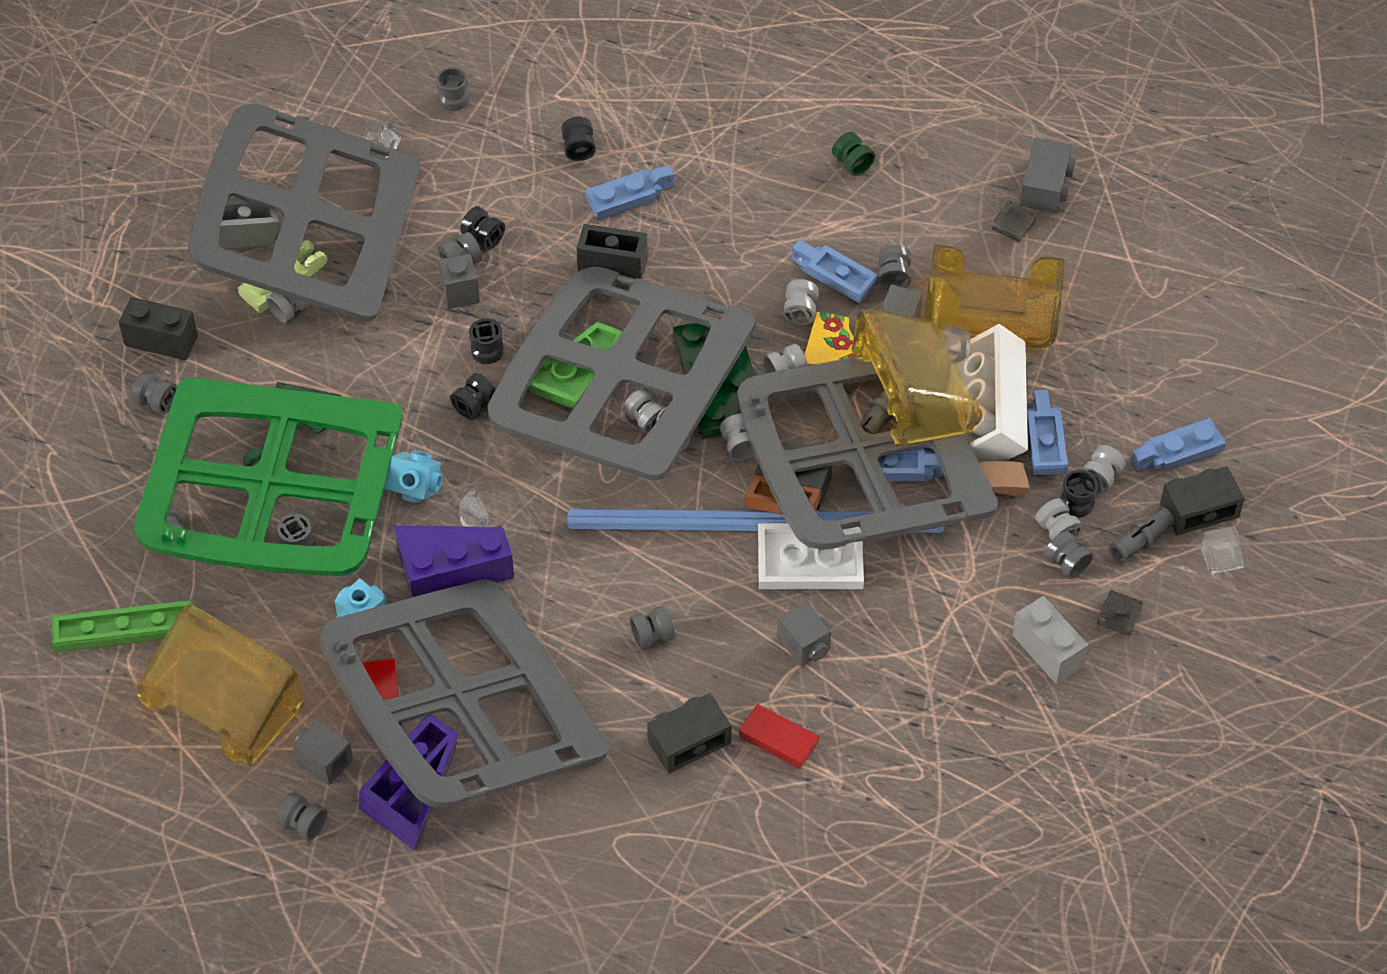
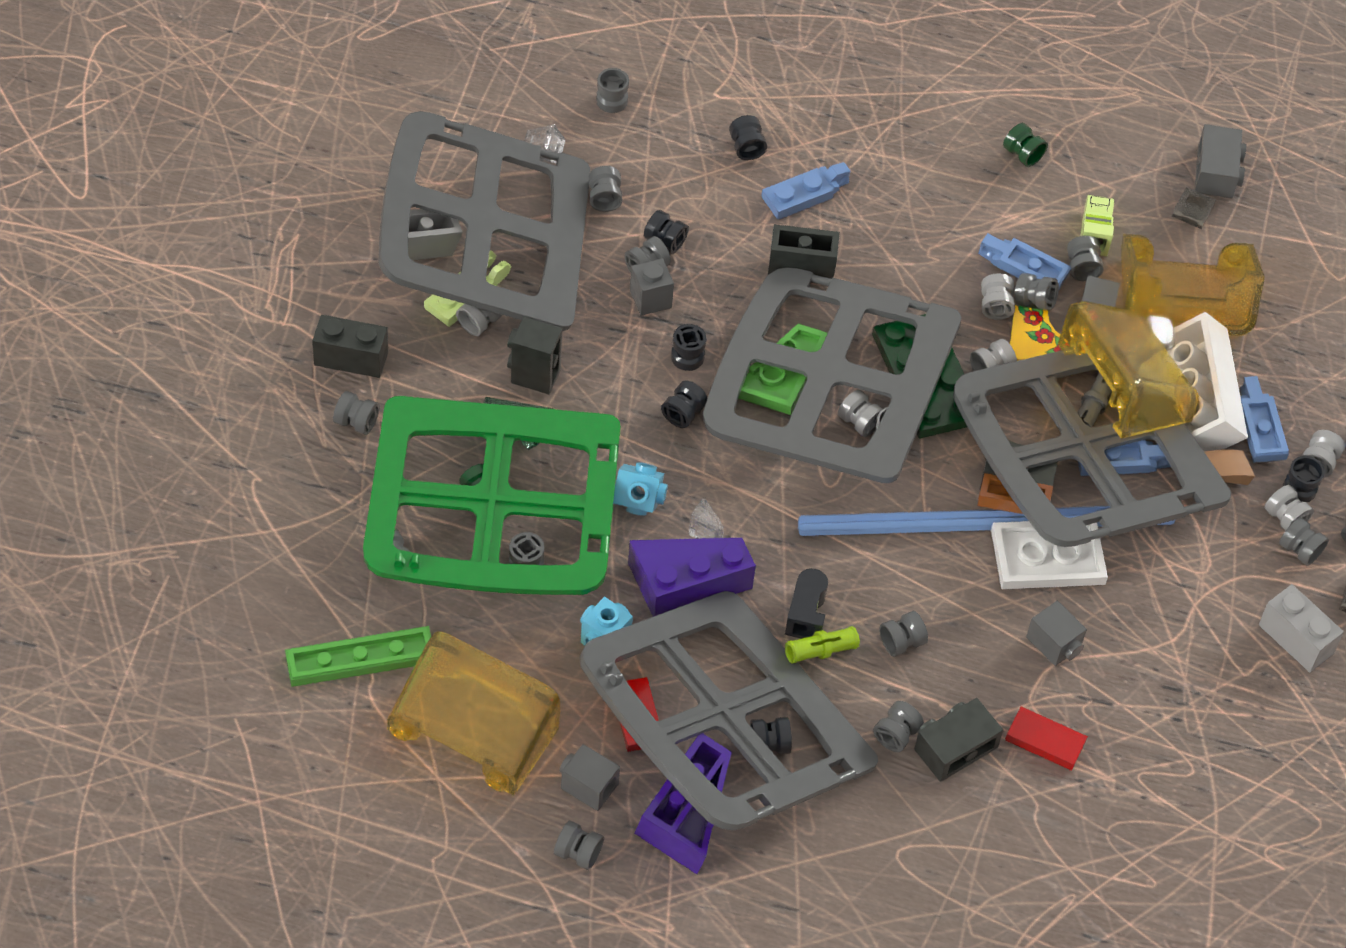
camera: 10 degrees left, 0 degrees up
(332, 343) = (535, 355): none -> pearl dark grey brick
(430, 184) = (605, 188): none -> dark grey wheel
(507, 720) = (774, 734): none -> black wheel
(557, 601) = (807, 598): none -> black leg
(570, 635) = (822, 644): none -> lime pin
(631, 717) = (898, 726): none -> dark grey wheel
(735, 434) = (956, 432): light grey wheel -> none
(839, 298) = (1036, 291): none -> dark grey wheel
(914, 231) = (1098, 220): none -> yellowish green leg

